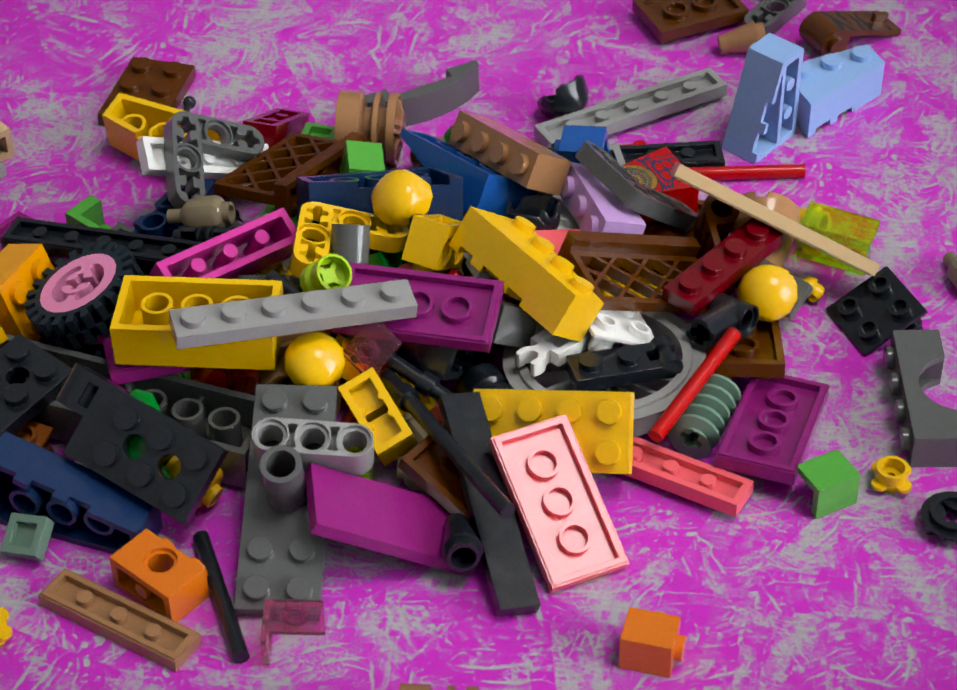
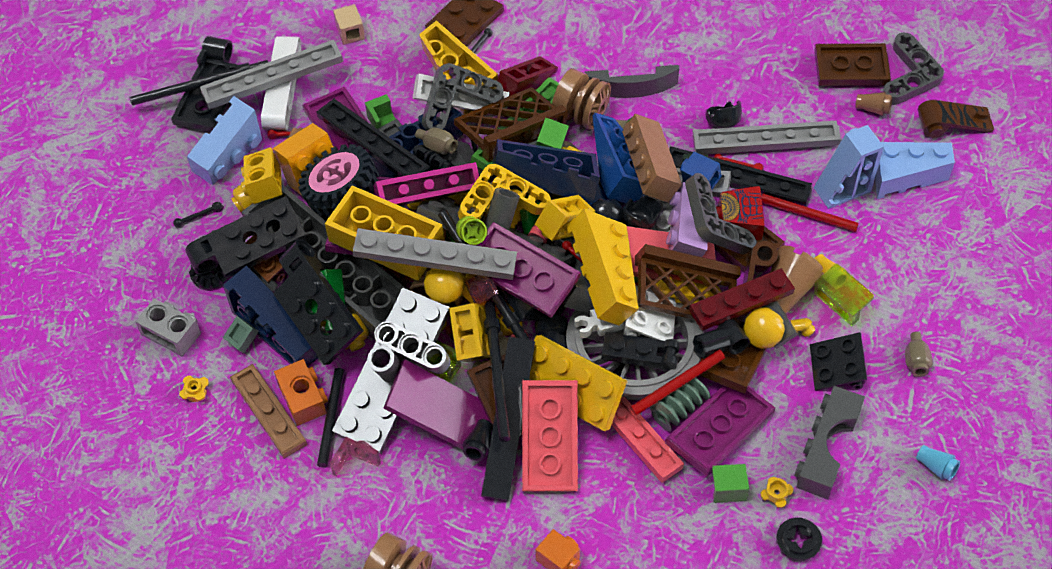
camera: 25 degrees right, 15 degrees up
(400, 197) = (550, 181): yellow hair -> none
(774, 219) = (794, 276): tan tile -> none

